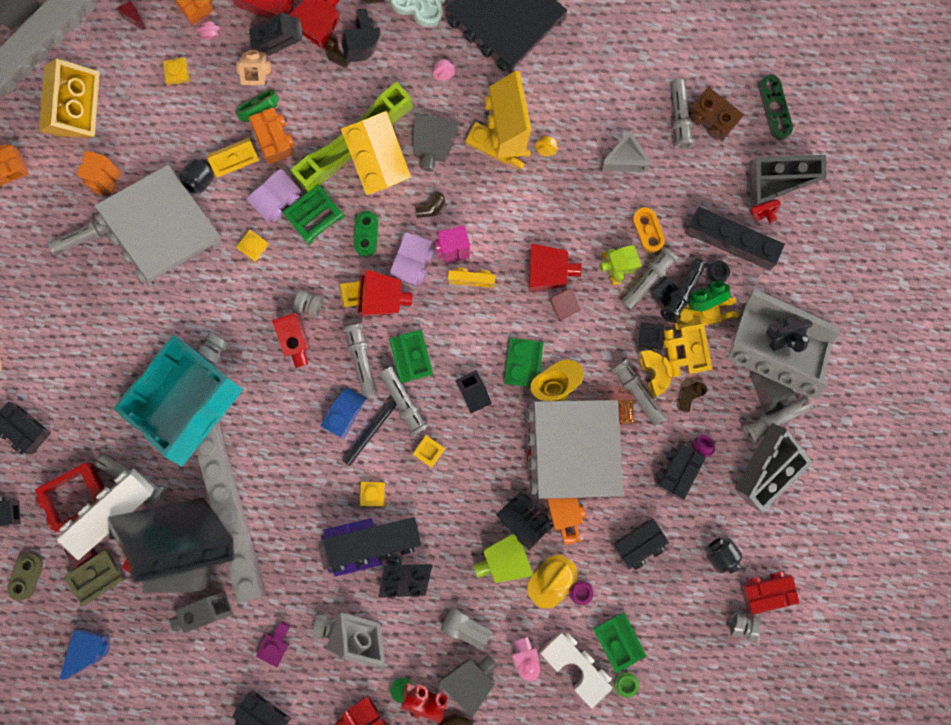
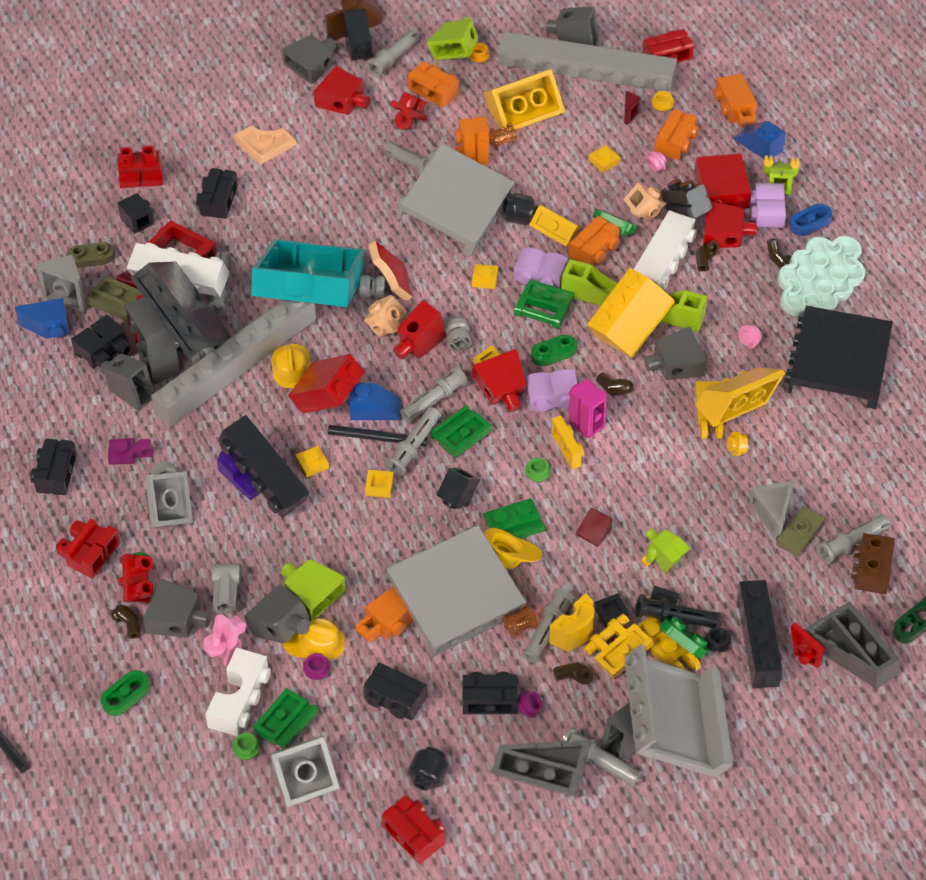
camera: 60 degrees right, 30 degrees down
(22, 208) = (410, 108): none -> red hips
(54, 619) = (61, 280): none -> light grey slope
(99, 141) = (502, 135): none -> clear orange bush
(150, 623) = (101, 342): none -> black hips
(206, 322) = (392, 269): none -> tile
(255, 355) = (385, 316): none -> light nougat brick
(256, 459) = (290, 364): none -> yellow piece
(308, 446) = (326, 383): none -> red brick
(316, 86) = (667, 248): none -> white brick
(360, 42) = (727, 264): black brick -> none
(404, 580) = (245, 508): black hinge -> none
(483, 316) = (538, 470): none -> bright green plate
(522, 522) = (358, 579): black hinge -> none
(524, 601) = (278, 616): none -> dark grey torso
(550, 268) = (619, 497): red torso -> none
(649, 230) = (714, 563): light orange plate -> none
(654, 148) = (800, 531): none -> olive plate
(655, 271) = (681, 584): light grey pin -> none
(678, 652) = (304, 771): none -> light grey slope
(745, 627) = (365, 821): light grey wheel -> none
(789, 335) = (691, 713): black hips -> none

